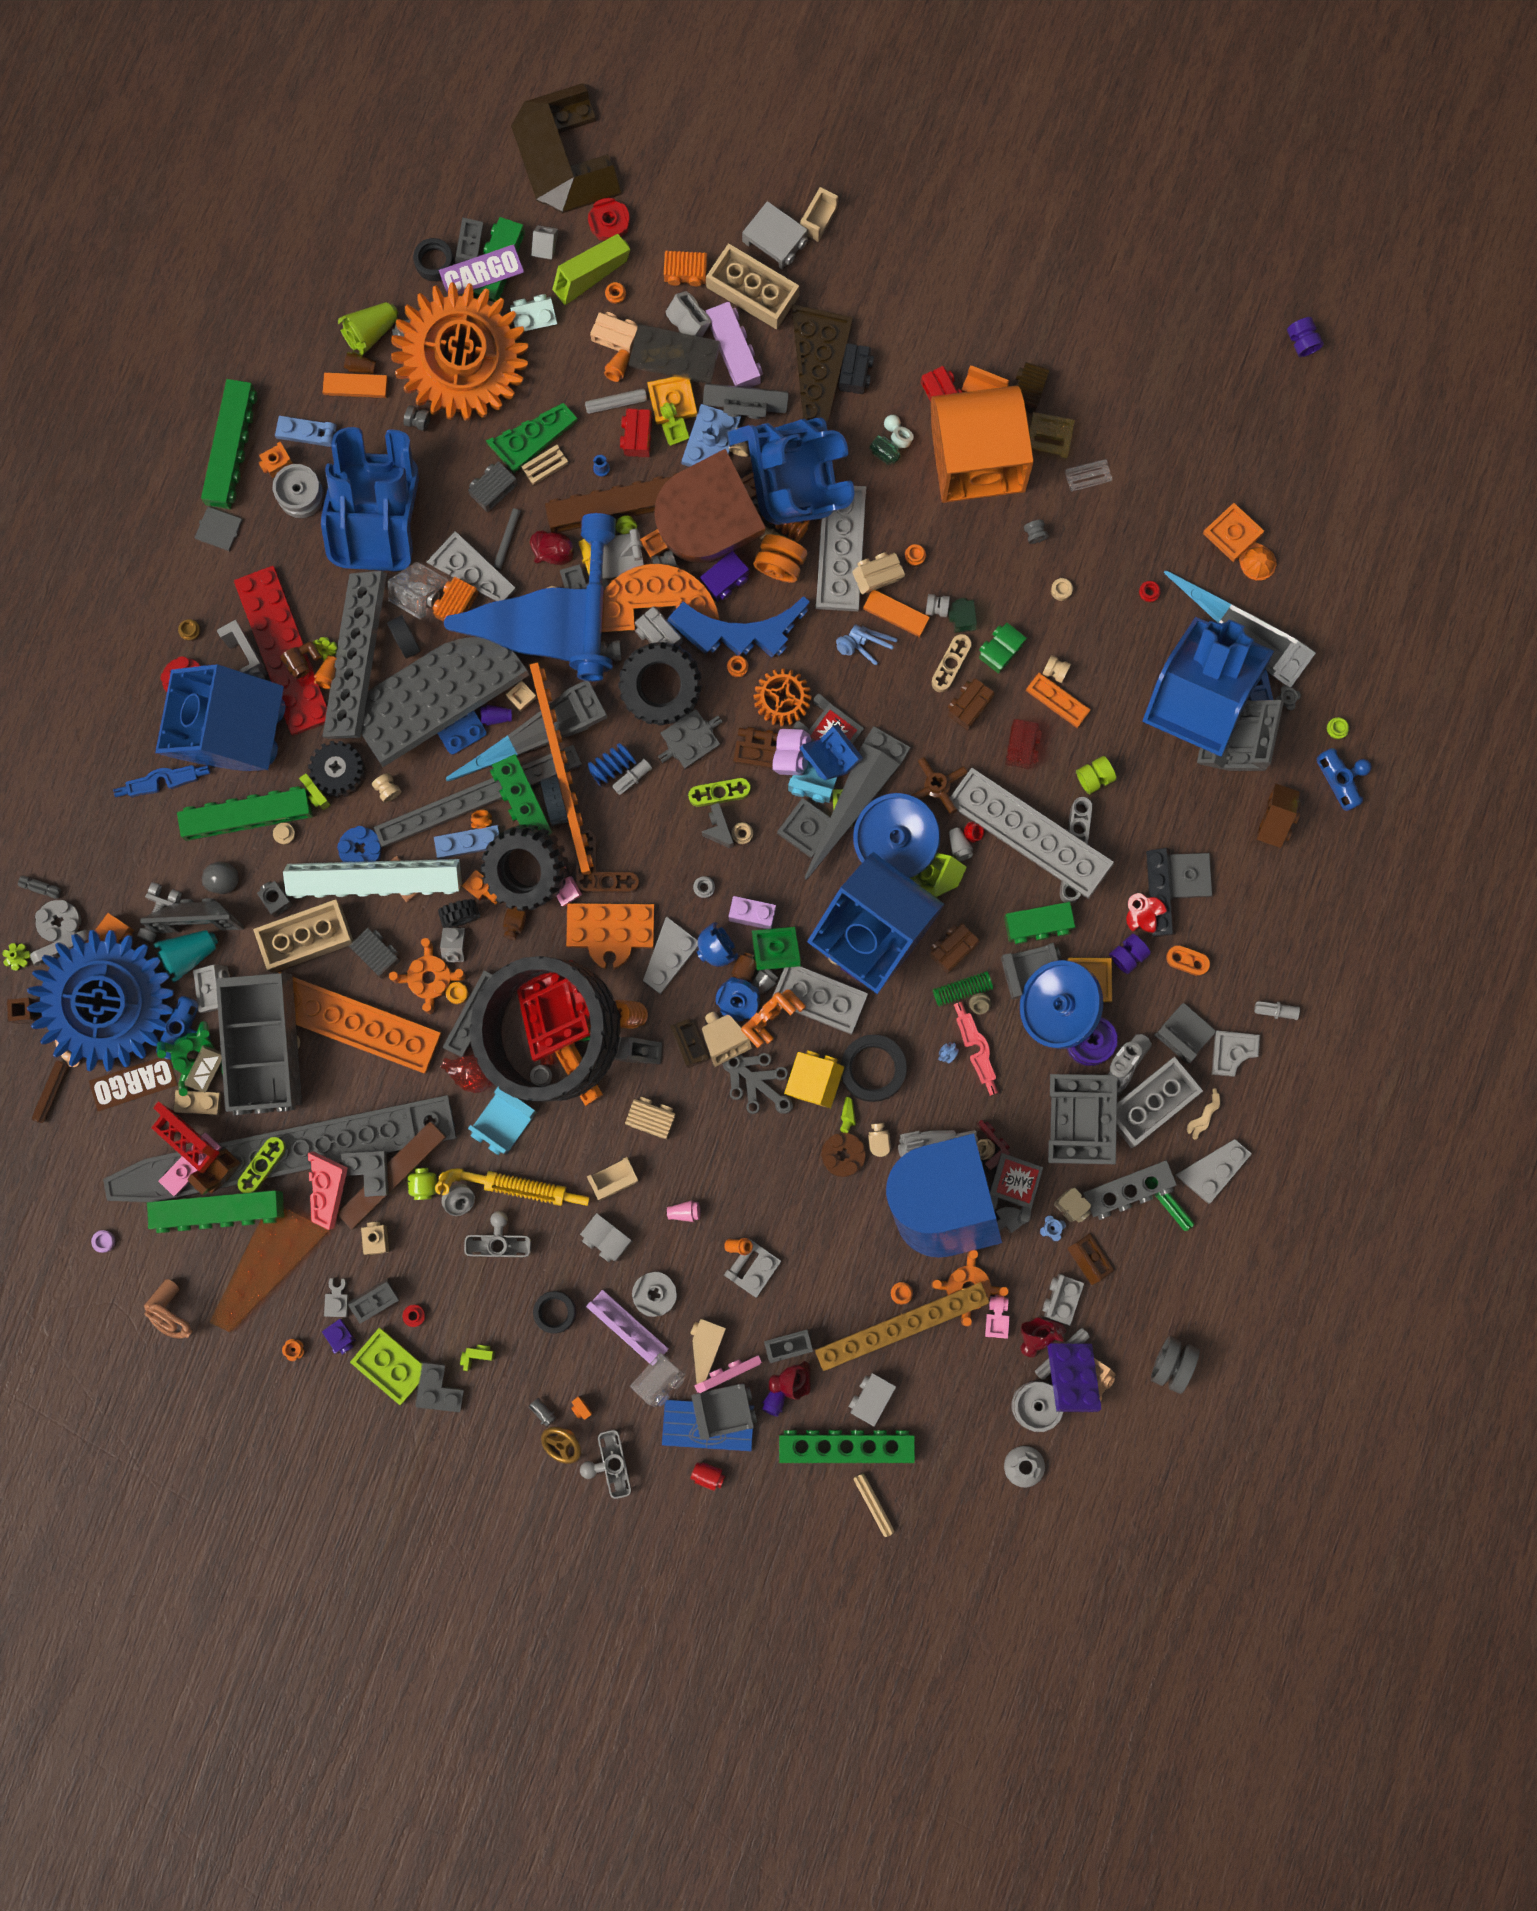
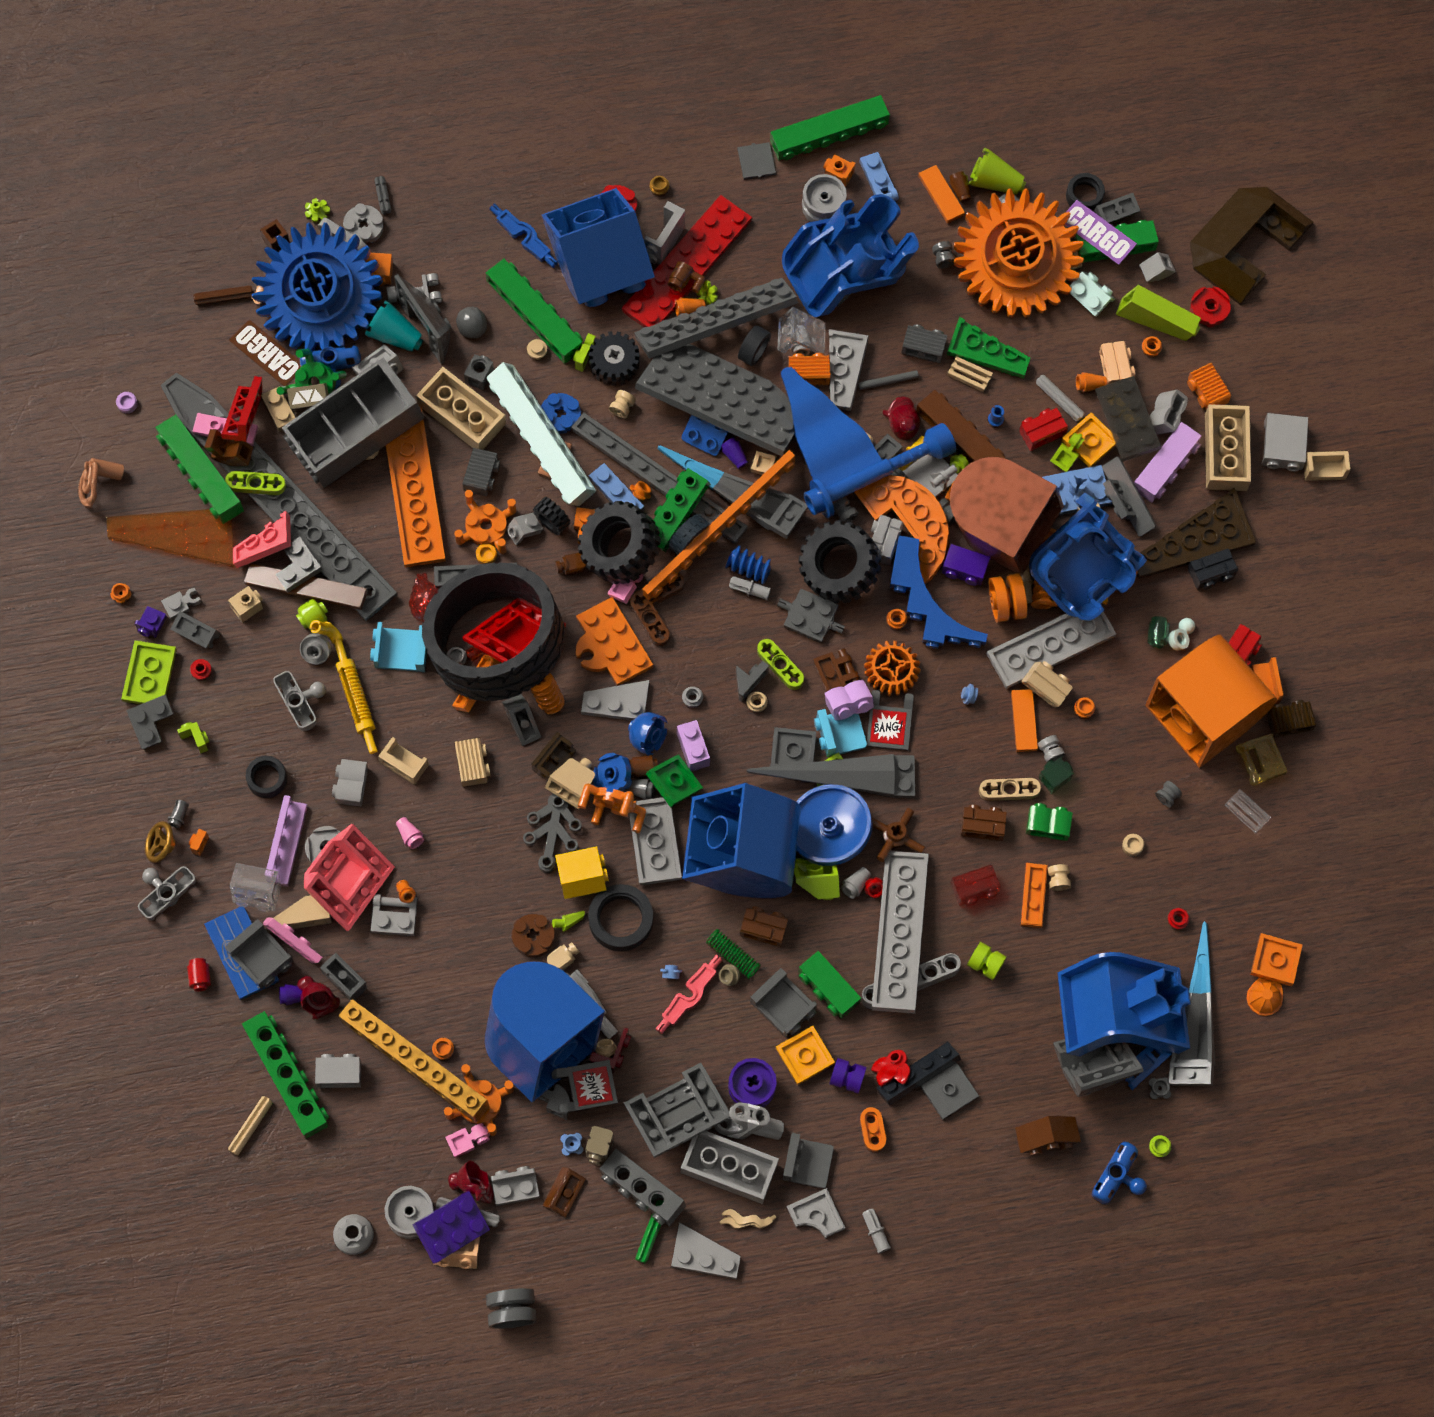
camera: 55 degrees right, 10 degrees down
(696, 1292) = (347, 875): none -> coral slope
(831, 754) = (864, 732): blue bracket -> none
(863, 634) = (985, 703): medium blue plant -> none
(1061, 1004) = (765, 1036): blue dish -> none

